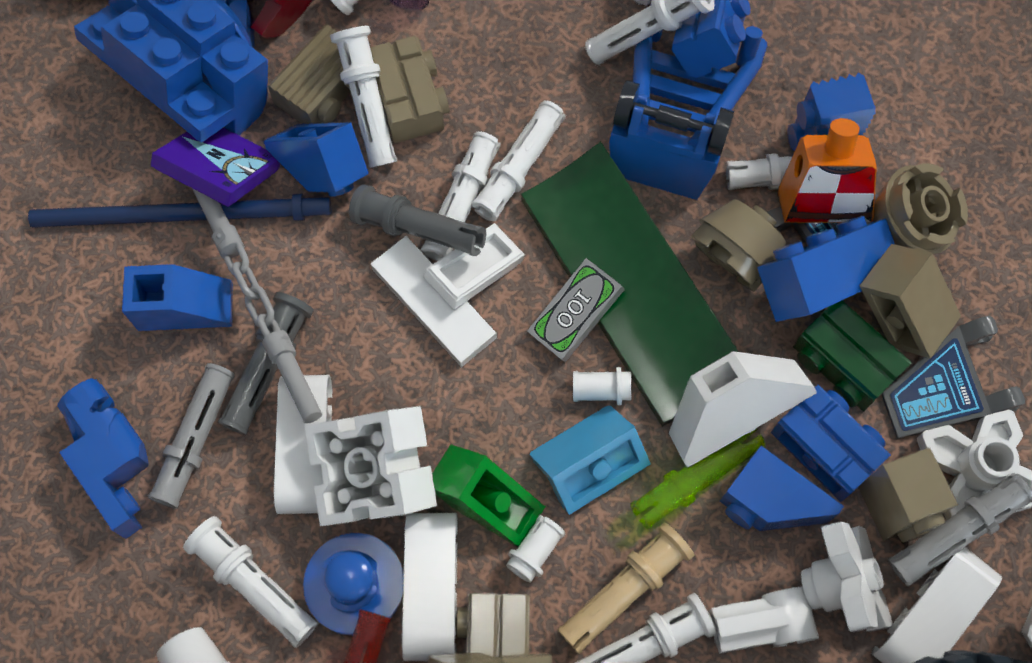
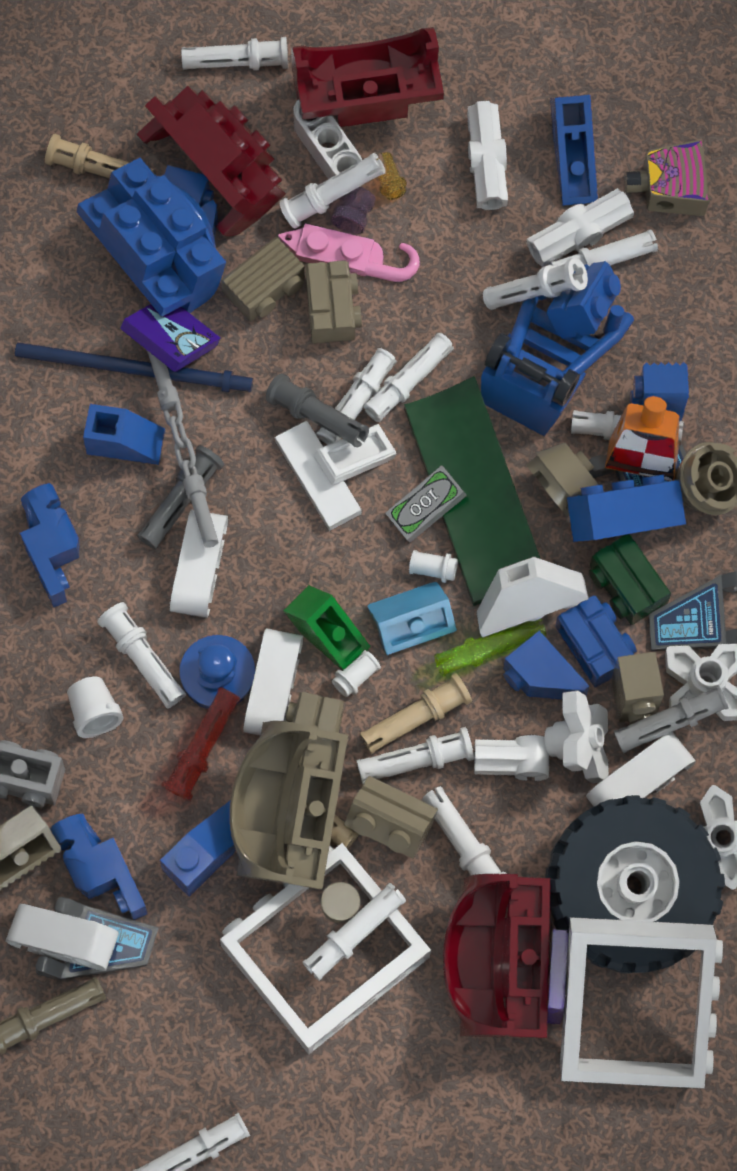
camera: 10 degrees right, 0 degrees up
(168, 488) = (107, 553): light grey pin -> none
(320, 156) = (251, 343): blue slope -> none
(361, 75) = (296, 284): white pin -> none
(370, 466) = (247, 586): white brick -> none
(433, 28) = (364, 255): none -> bright pink plate
(911, 300) = (682, 546): dark tan brick -> none

